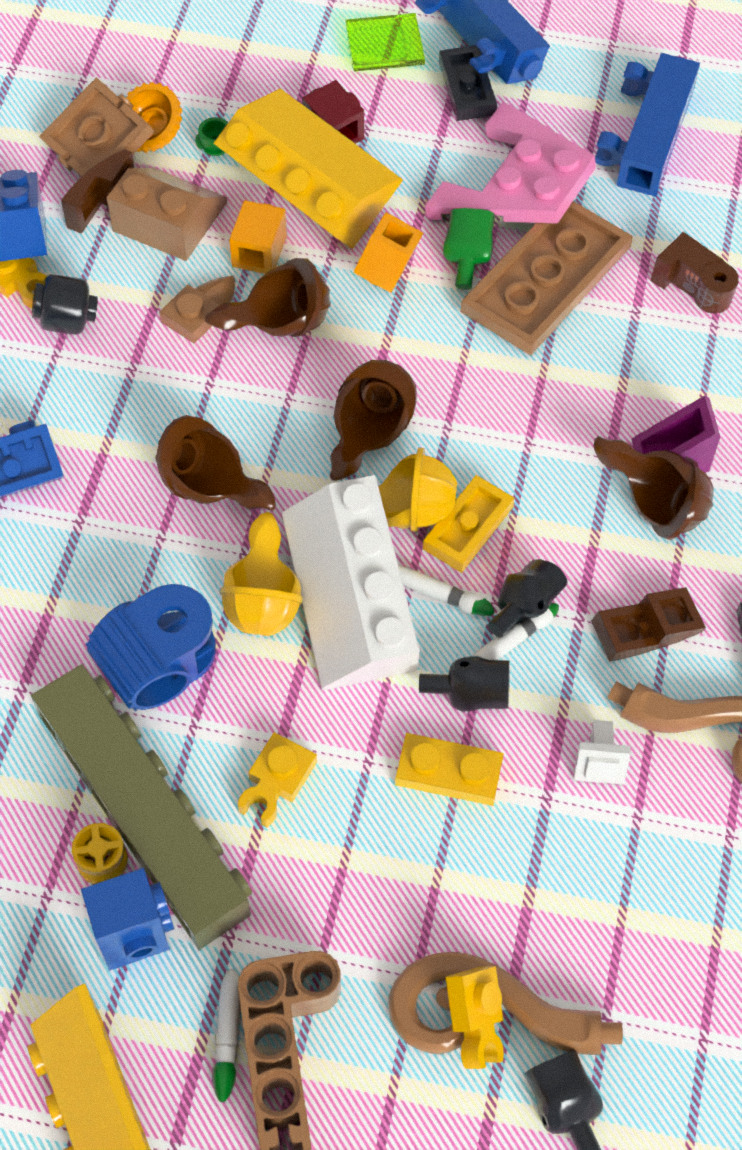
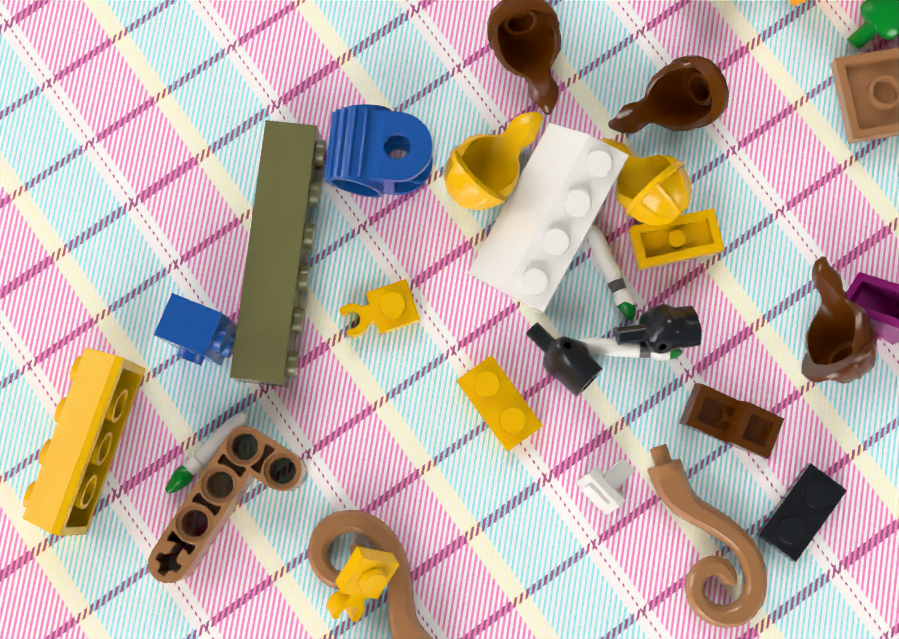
camera: 45 degrees right, 20 degrees up
(95, 843) = (218, 261): yellow wheel -> none

